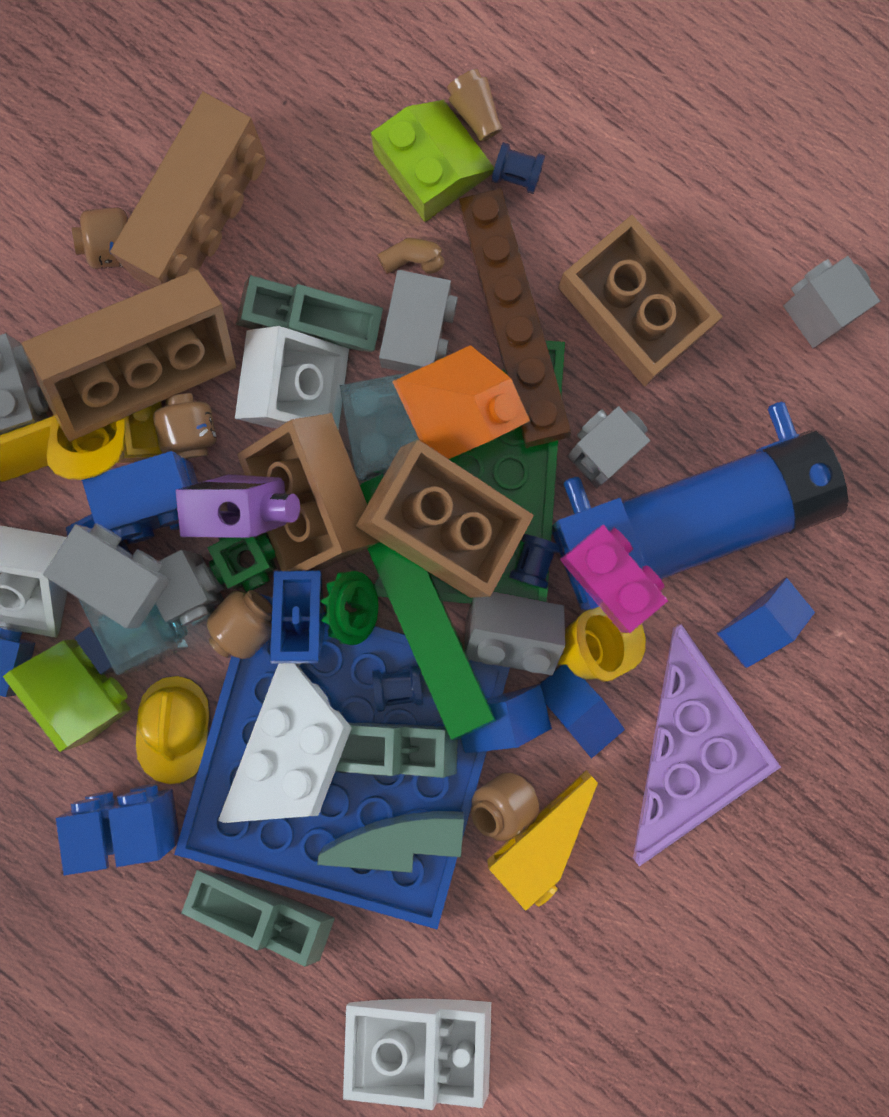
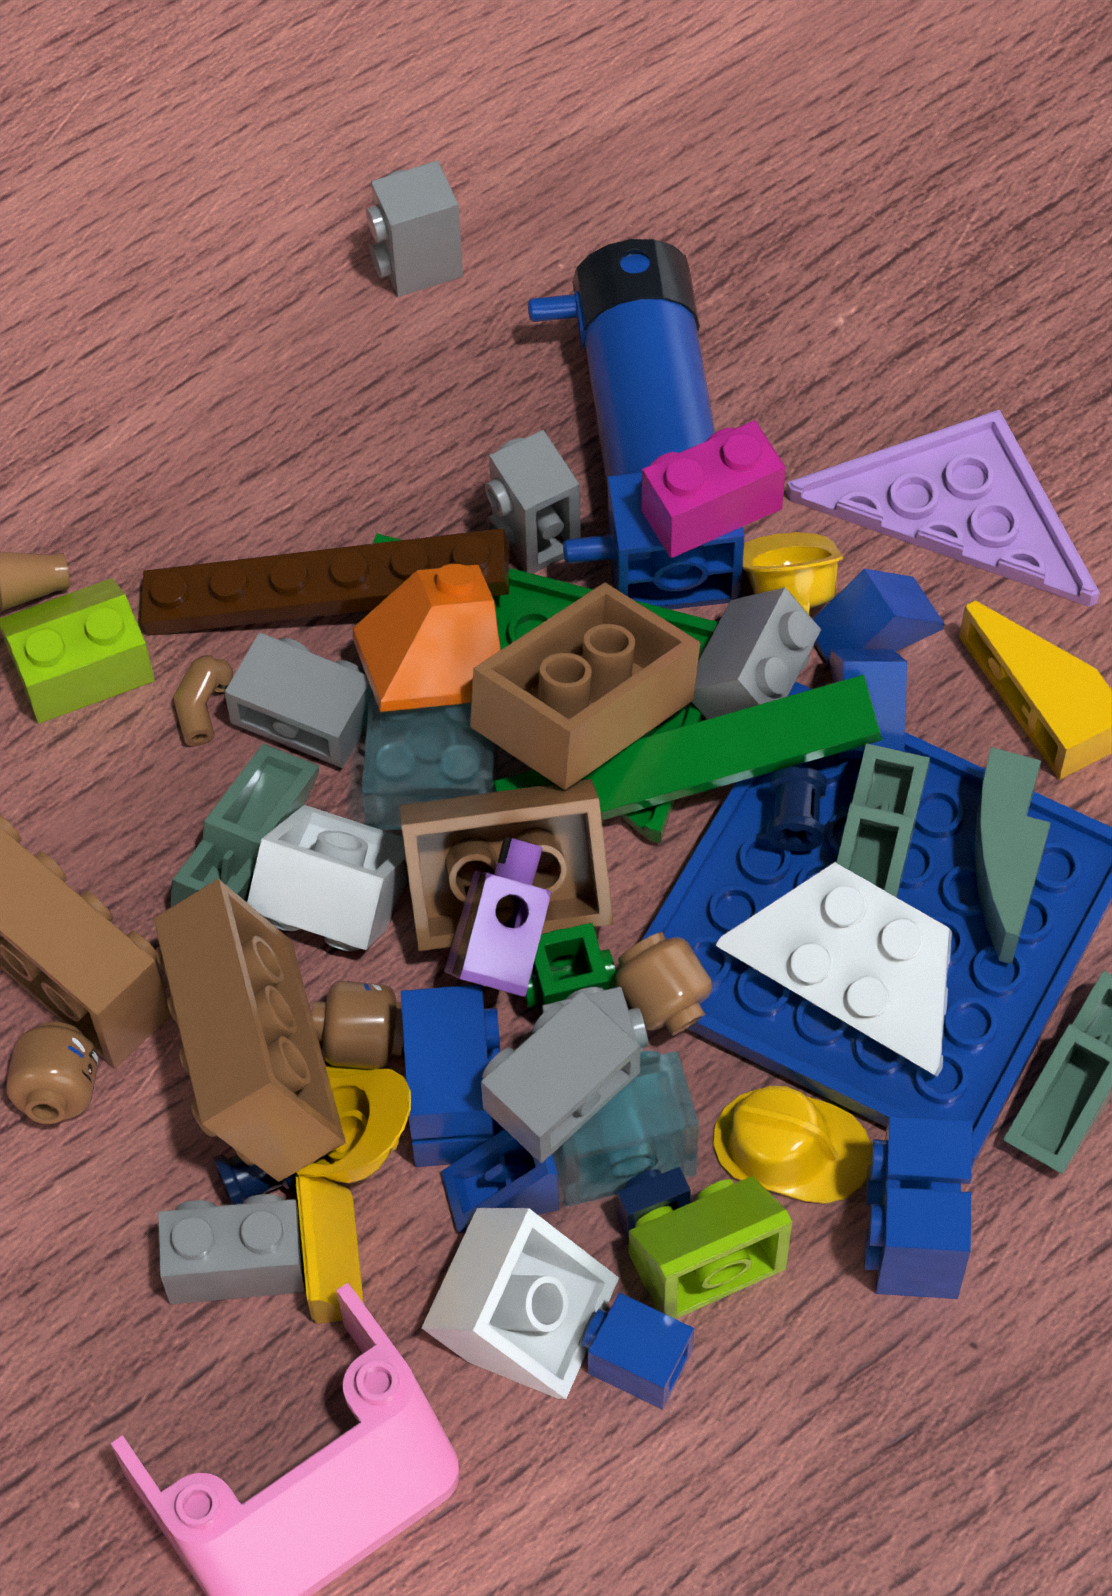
camera: 75 degrees left, 25 degrees down
(297, 617) = (670, 898): blue slope -> none
(359, 593) = (673, 838): green gear -> none
(504, 807) = (985, 716): medium nougat head -> none
(518, 168) = (124, 544): dark blue bush -> none
(534, 561) = (668, 606): dark blue bush -> none
(638, 300) = (351, 435): medium nougat brick -> none
(767, 624) = (811, 391): blue slope -> none

